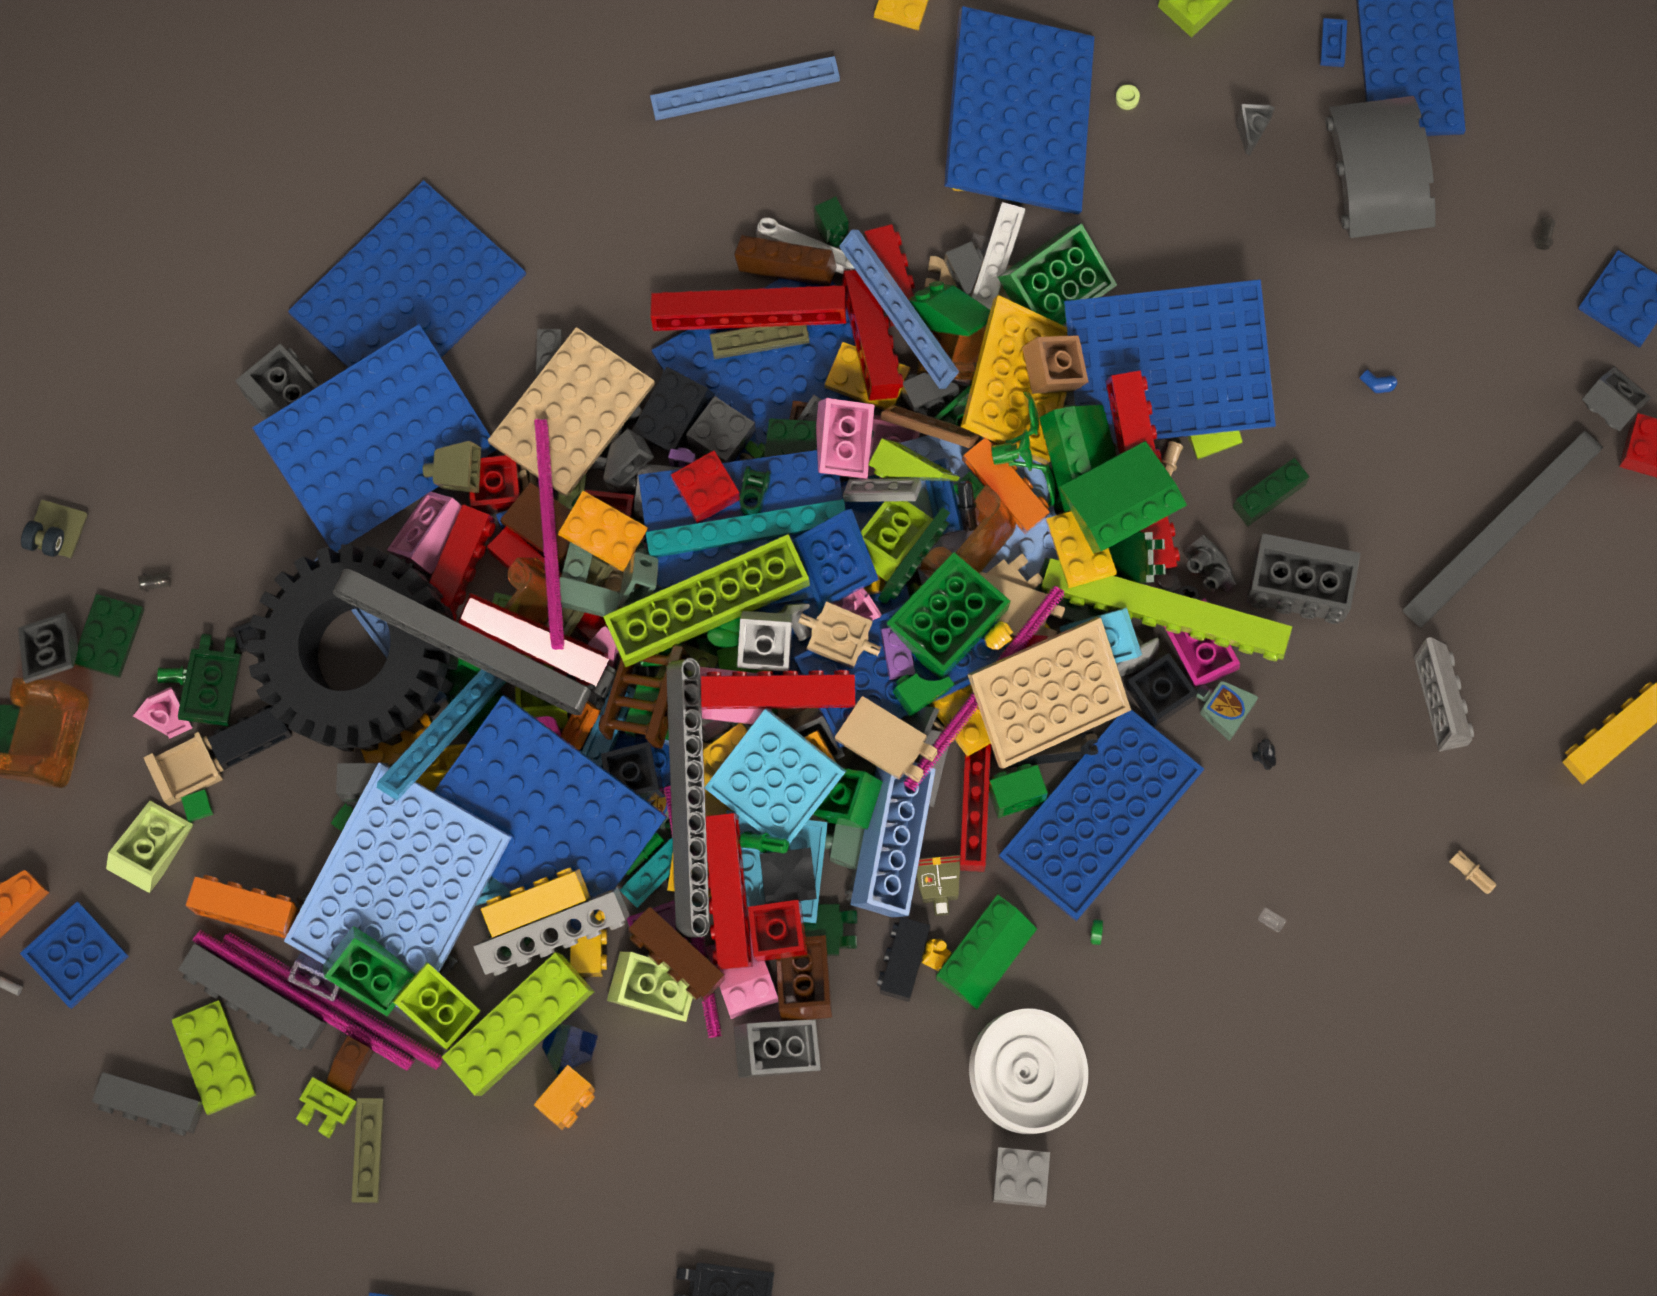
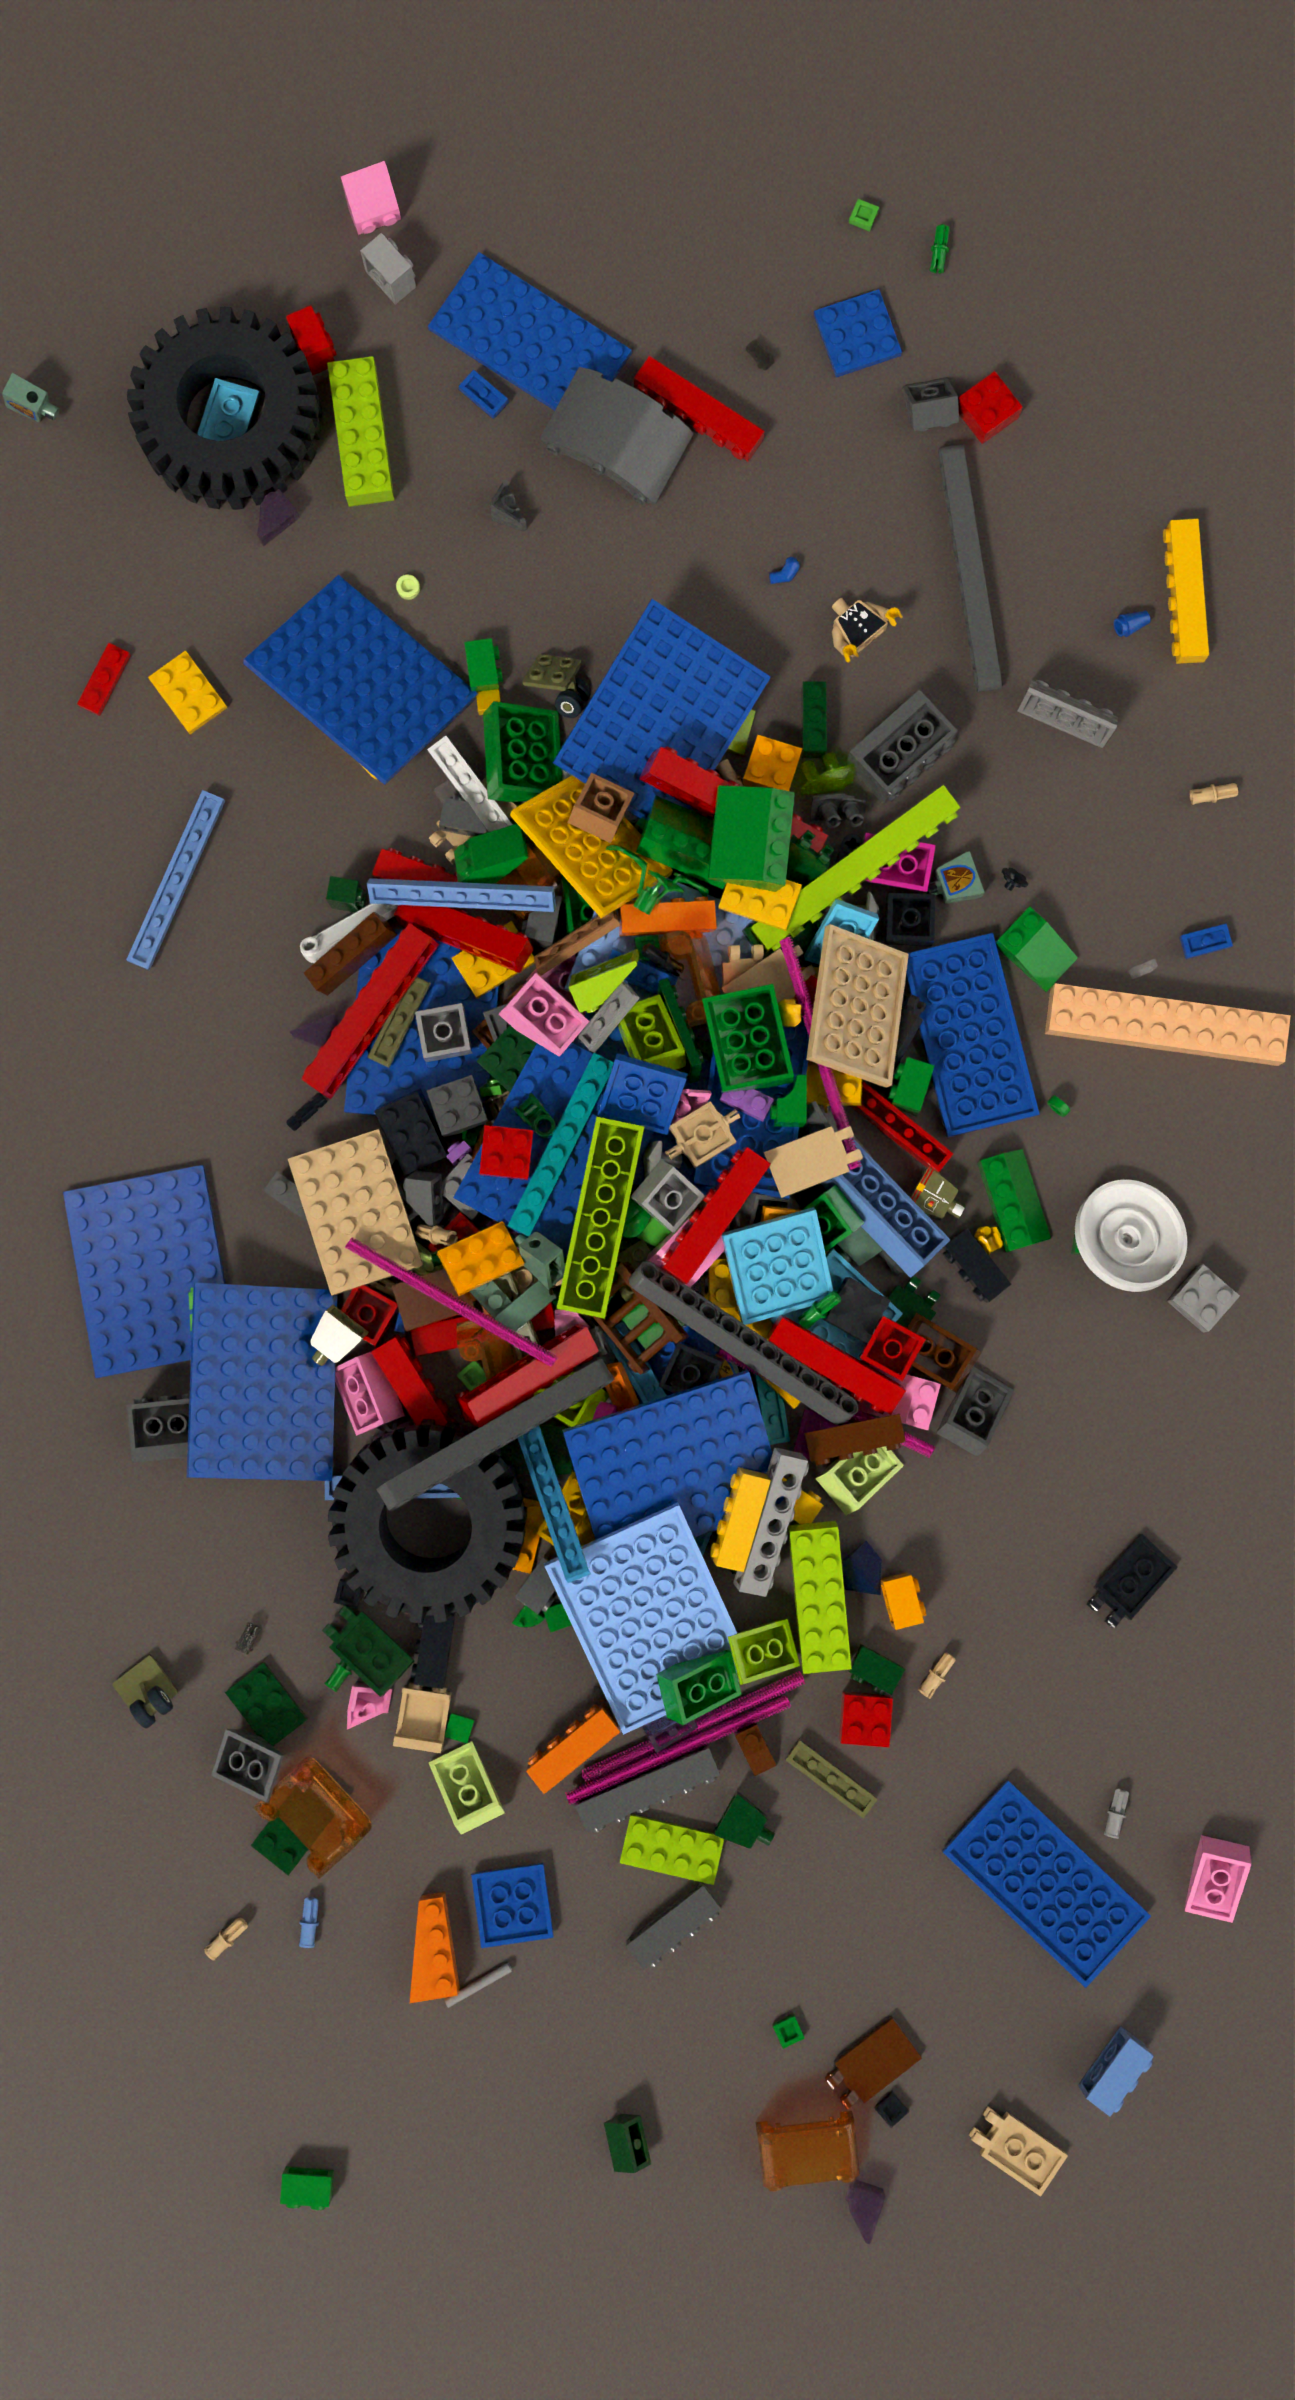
camera: 55 degrees left, 10 degrees up
(121, 1270) = (788, 2031): none -> green tile
(277, 1100) = (743, 1823): none -> dark green torso
(327, 1101) = (771, 1784): lime plate -> none
(329, 797) = (528, 1618): none -> green tile
(440, 1142) = (865, 1719): none -> red brick
(489, 1121) = (876, 1670): none -> dark green brick
(522, 1179) = (936, 1675): none -> tan axle
(599, 487) = (436, 1234): none -> tan axle
(629, 321) = (306, 1111): none -> black axle
(701, 280) = (316, 1032): none -> clear purple slope
(774, 377) = (443, 1032): none -> light grey brick
(1081, 217) = (485, 699): none -> yellow slope
(1107, 198) = (481, 664): none -> green brick
(1145, 260) = (559, 674): none -> olive plate
(1204, 486) = (772, 764): none -> light orange brick
(1219, 816) = (1036, 949): none -> green slope
(1233, 544) = (833, 780): none -> clear neon green connector
(1239, 975) = (1167, 1024): none -> light nougat brick
(1338, 957) = (1206, 941): none -> blue plate
(1380, 473) = (859, 625): none -> torso
(1458, 216) = (699, 409): none -> red brick
(1565, 696) = (1131, 622): none -> blue cone

